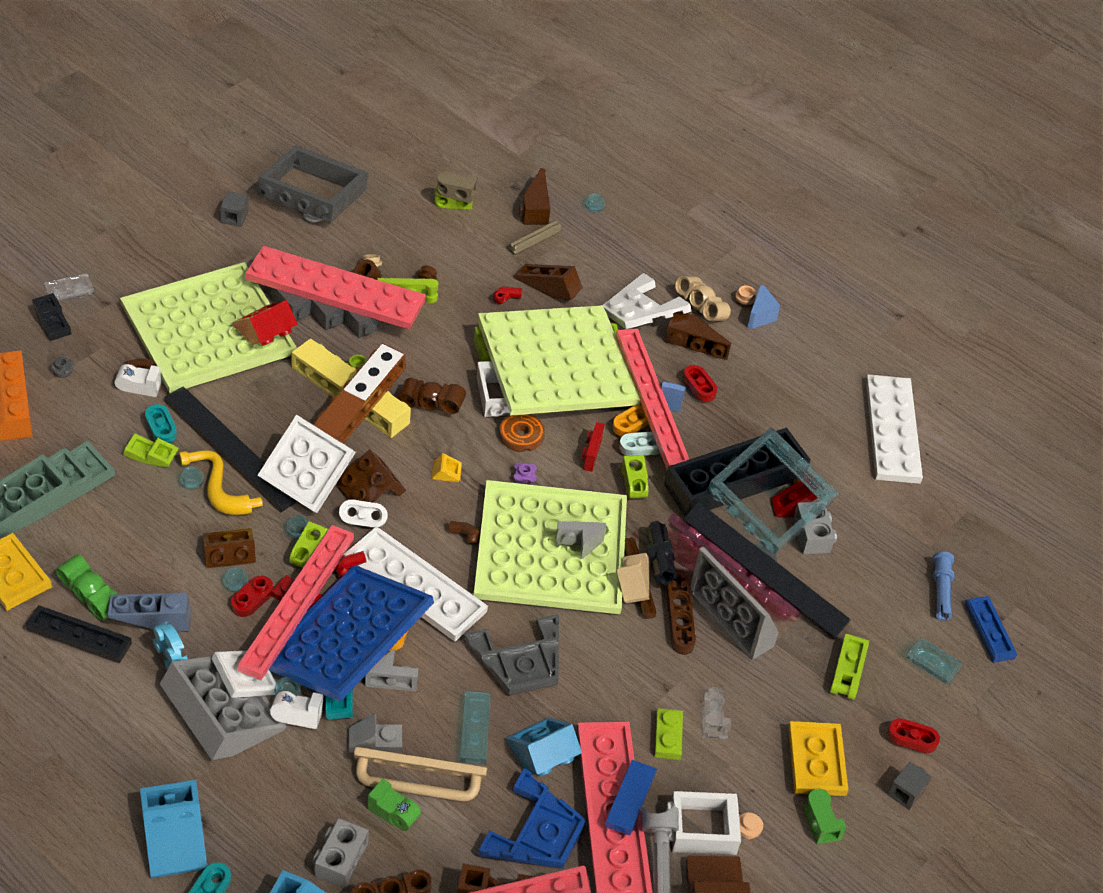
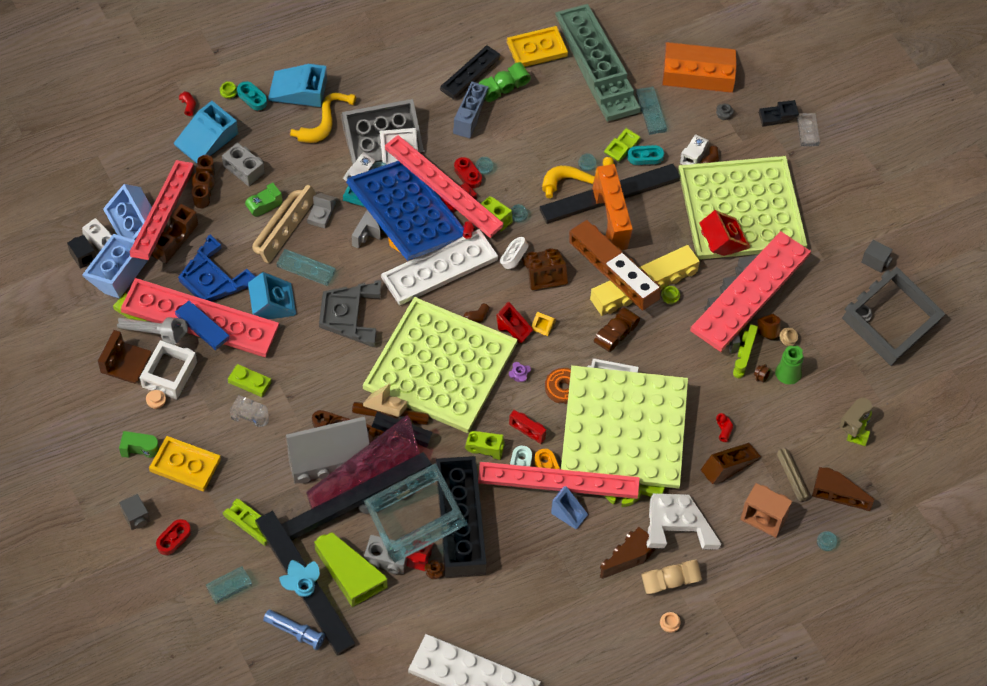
camera: 115 degrees right, 10 degrees up
(92, 431) = (651, 110): none -> clear light blue tile
(168, 643) = (425, 107): medium azure plate -> none
(229, 548) = (514, 166): reddish brown bracket -> none
(246, 777) = (319, 133): none -> yellow animal
(250, 415) = (609, 191): none -> orange arch
(306, 463) = (561, 217): white plate -> none
(411, 252) = (790, 367): none -> bright green plant
(466, 490) = (513, 322): none -> red slope
(586, 534) = (431, 377): light grey slope -> none
(594, 238) = (766, 510): none -> nougat brick
(700, 383) = (573, 534): red plate -> none
(764, 309) = (647, 625): medium blue slope -> none
(853, 554) = (350, 571): none -> lime slope
(888, 592) = (317, 602): none -> black tile
(894, 585) = (300, 575): none -> medium azure plate
(990, 629) = (242, 647): blue tile -> none

